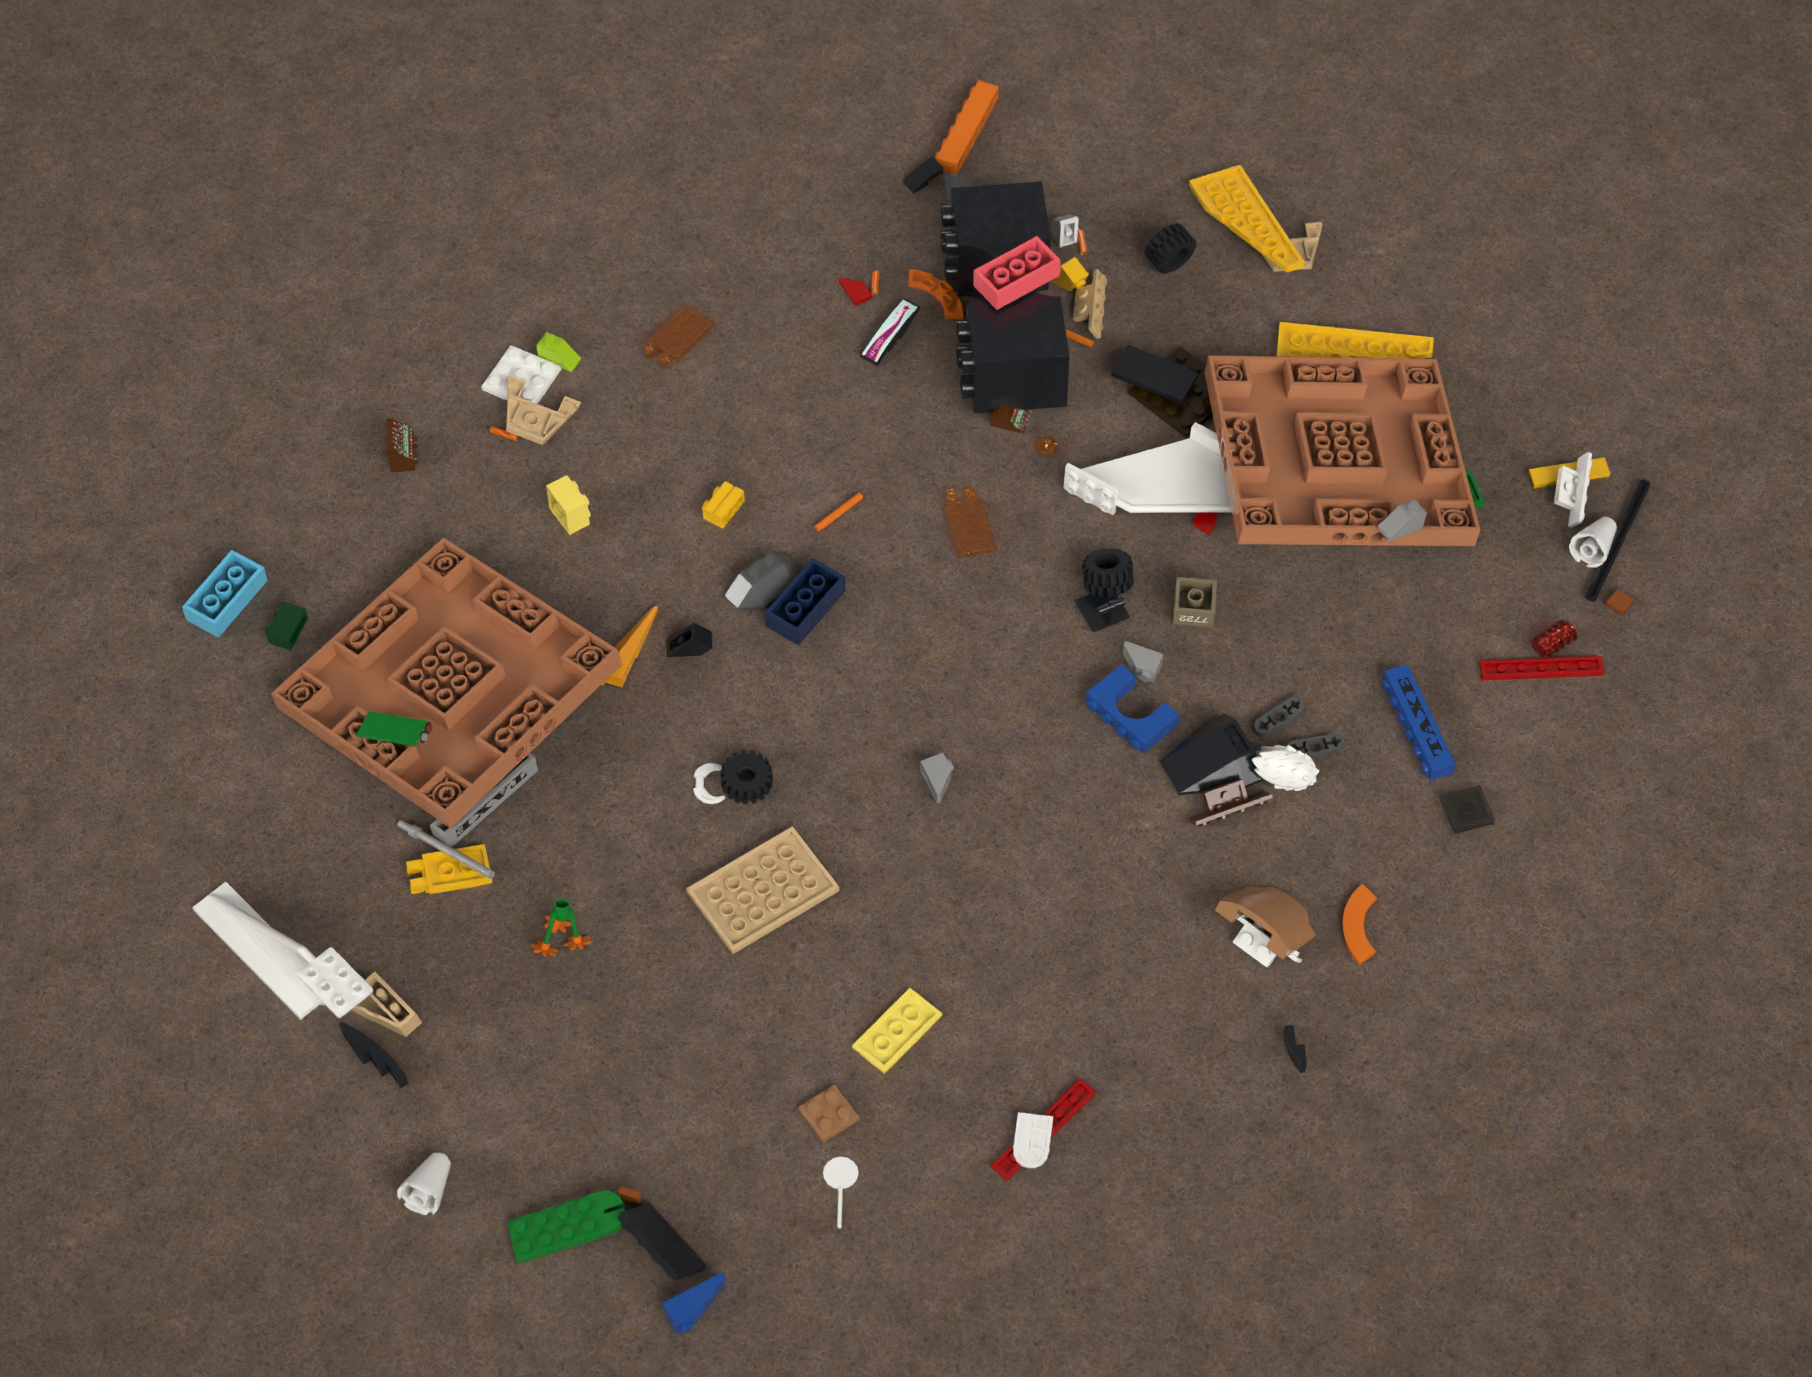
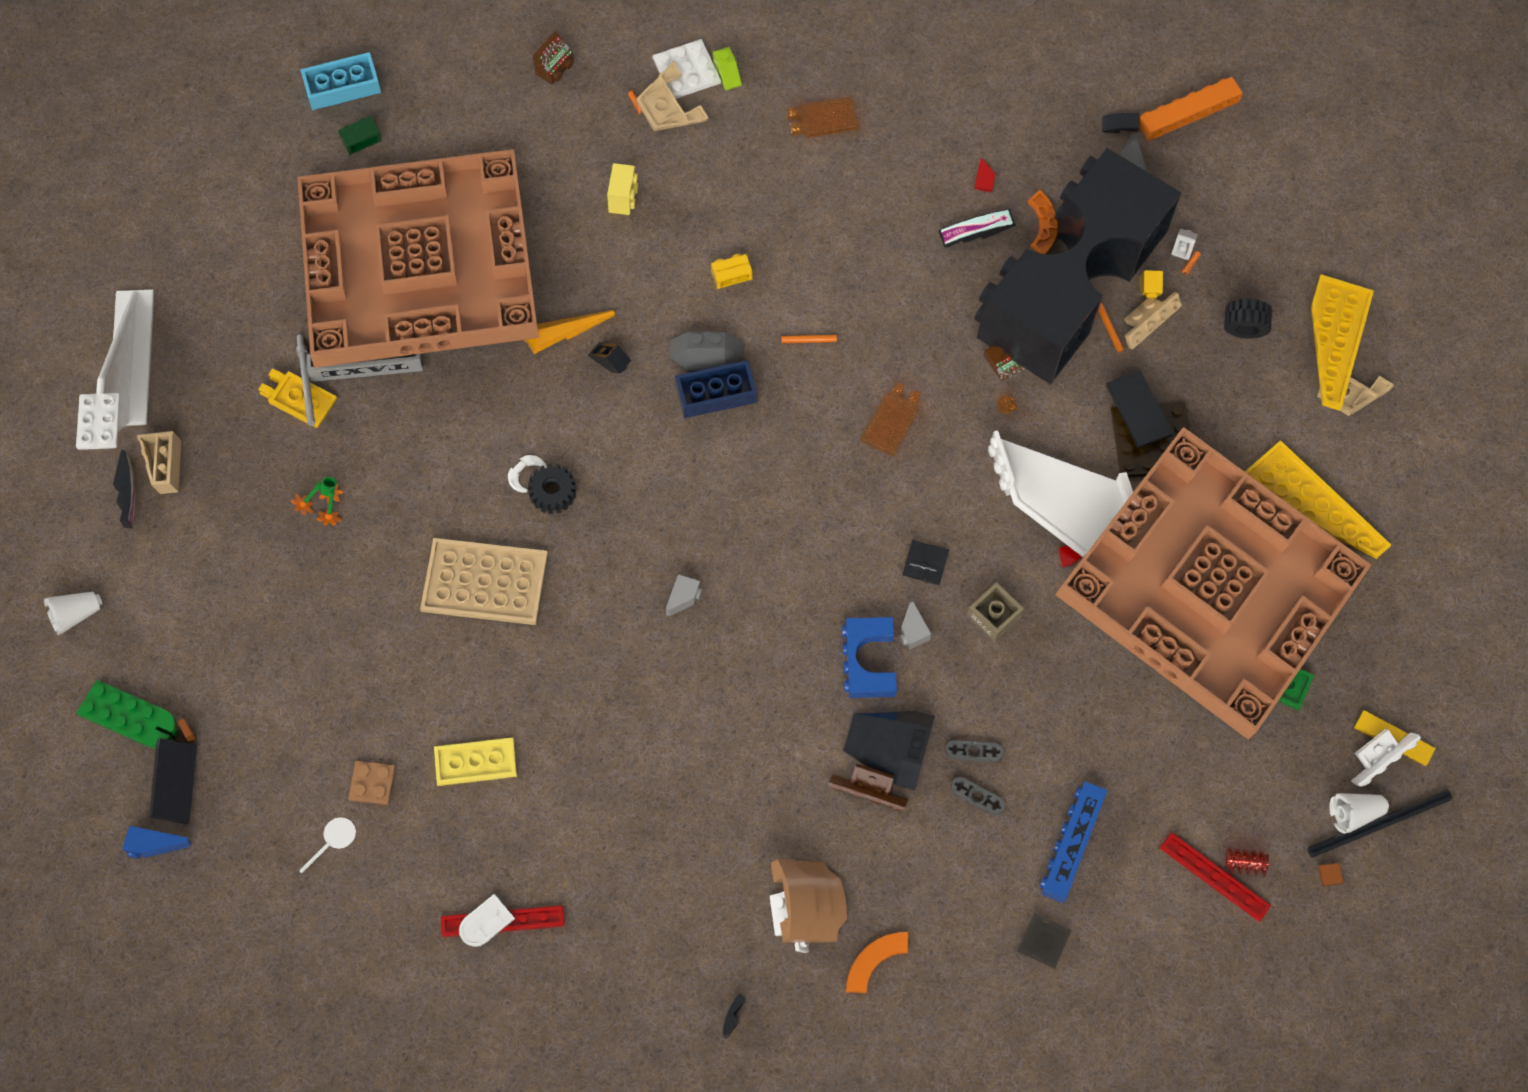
camera: 40 degrees right, 10 degrees up
(394, 729) = (340, 266): green piece -> none
(875, 282) = (1005, 181): orange piece -> none
(1016, 272) = (1082, 252): coral brick -> none
(1108, 572) = (952, 538): black tyre -> none
(1285, 767) = (934, 793): white head -> none
(1403, 521) = (1194, 677): light grey slope -> none

